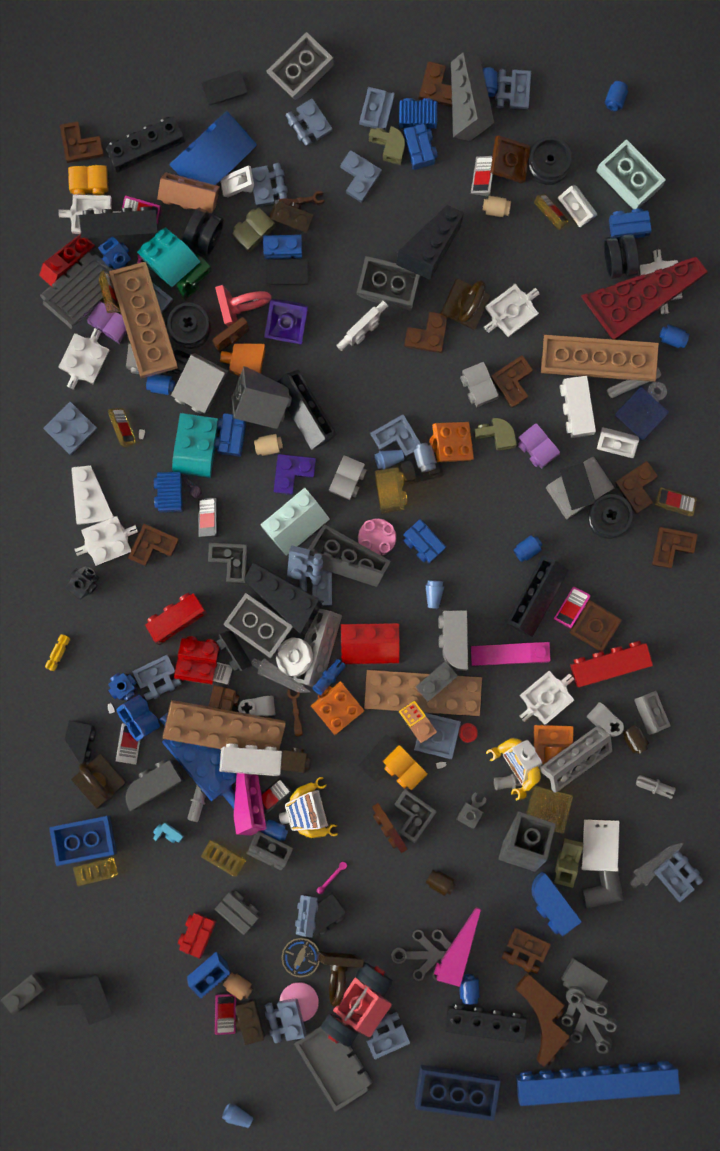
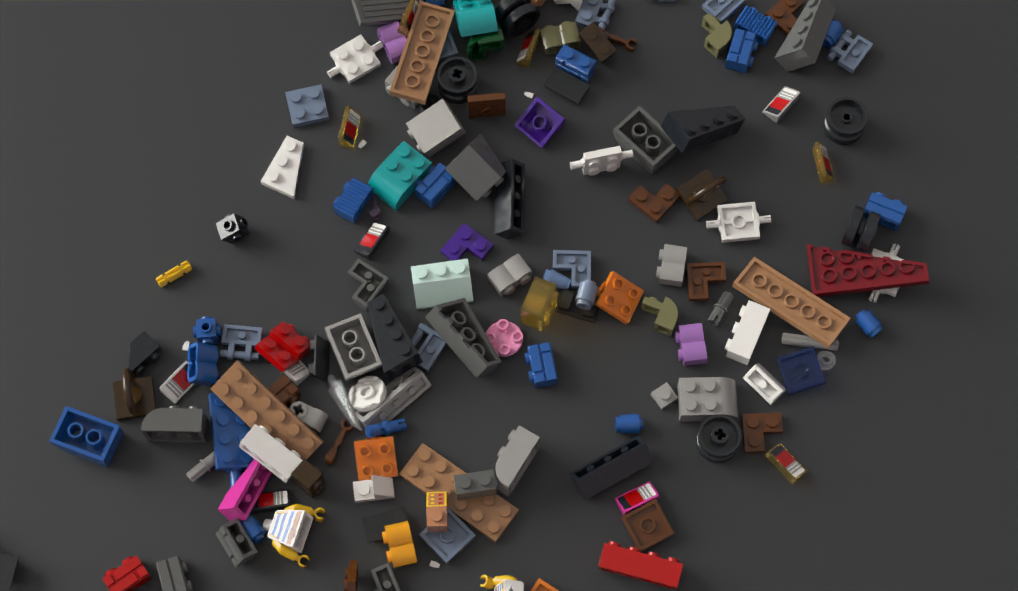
camera: 30 degrees right, 15 degrees down
(106, 540) = (275, 208): white plate -> none
(110, 866) = (91, 475): clear yellow slope -> none
(149, 540) = (312, 229): reddish brown plate -> none
(160, 384) = (402, 111): blue brick -> none
(171, 833) = (164, 479): medium azure bracket -> none
(175, 618) = (288, 303): red slope -> none
(230, 256) = (528, 48): none -> clear yellow slope
(233, 306) = (500, 82): coral tile -> none
(233, 856) = (201, 537): clear yellow slope -> none
(244, 355) = (491, 129): orange torso -> none
(268, 445) = (460, 210): tan brick -> none
(299, 565) = (421, 316): sand blue plate -> none
(351, 734) = (374, 489): none -> white slope
(364, 173) = (680, 48): sand blue plate -> none
(370, 643) = (440, 421): red slope -> none
(434, 593) = (523, 413): medium blue cone -> none
(468, 732) = (476, 550): red plate -> none
(496, 206) = (777, 132): tan brick -> none
(510, 159) = (811, 102): reddish brown plate -> none
(510, 654) = (558, 505): dark pink slope -> none
(541, 505) = (664, 396): none -> light grey plate
(543, 399) = (720, 308): none -> dark grey axle
(546, 697) = (565, 561): white plate -> none
(577, 205) = (848, 172): white slope -> none
(577, 486) = (703, 391): black piece -> none
(616, 96) = (936, 103): blue brick -> none
(630, 175) = (909, 170): light aqua brick -> none
(669, 541) = (758, 493): reddish brown plate -> none

